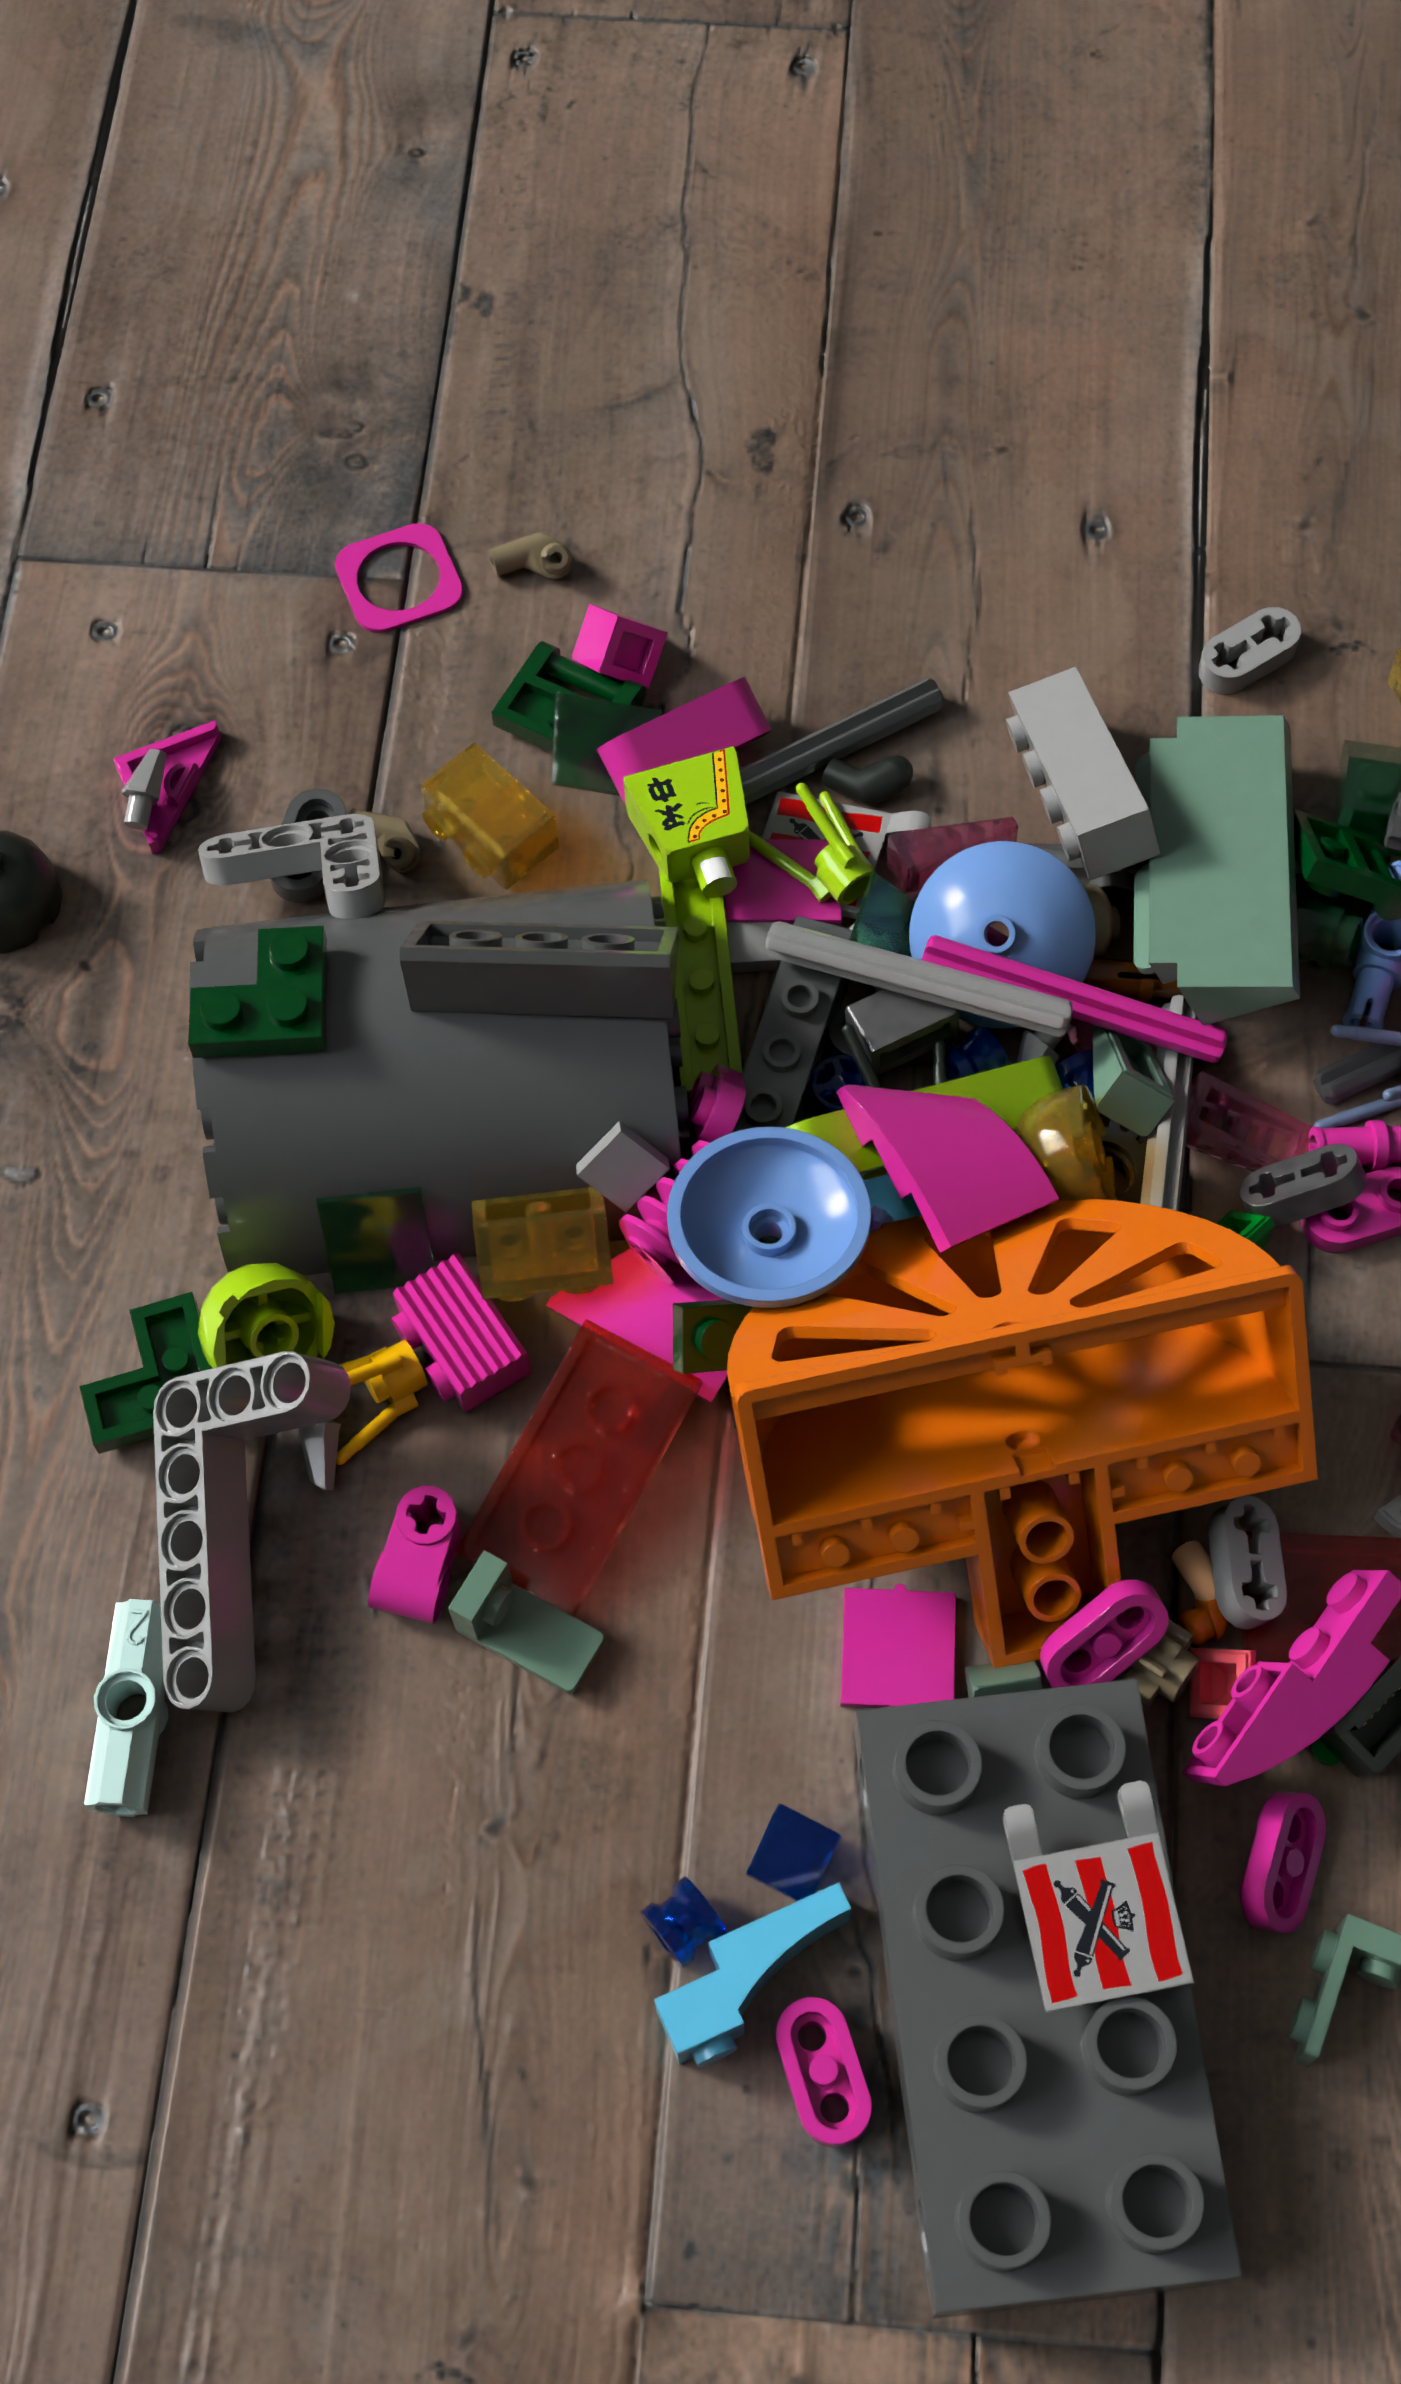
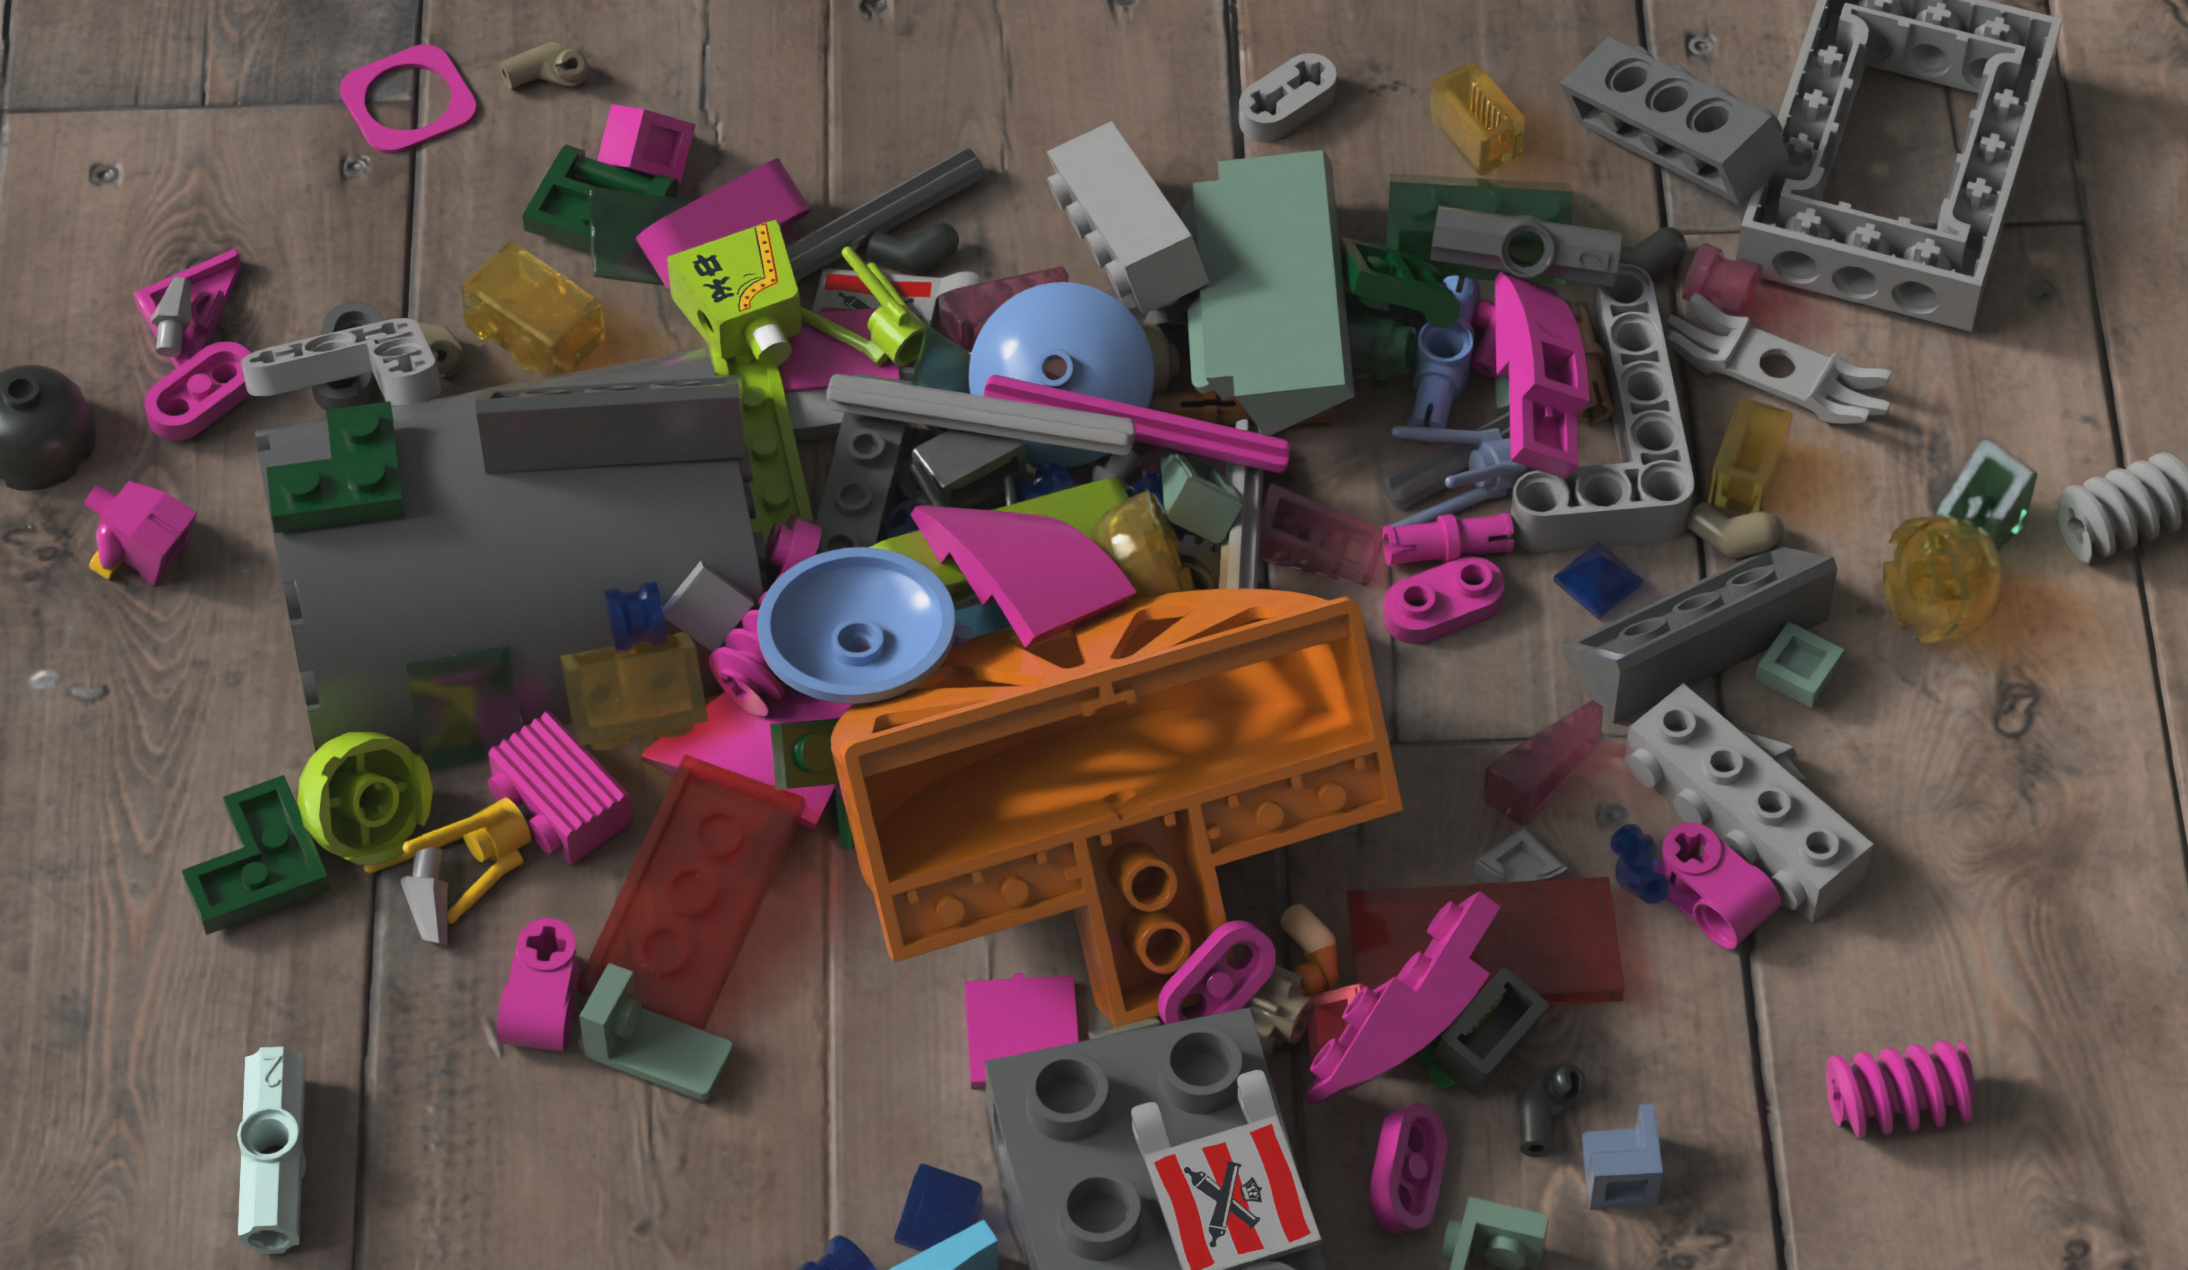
camera: 10 degrees left, 10 degrees down
(84, 1011) = (139, 529): none -> dark pink piece
(160, 867) = (197, 392): none -> dark pink plate
(204, 1512) = (323, 953): light grey beam -> none
(548, 1175) = (635, 617): none -> clear blue wheel
(1248, 1562) = (1340, 911): light grey beam -> none
(1305, 1184) = (1383, 574): flat silver beam -> none

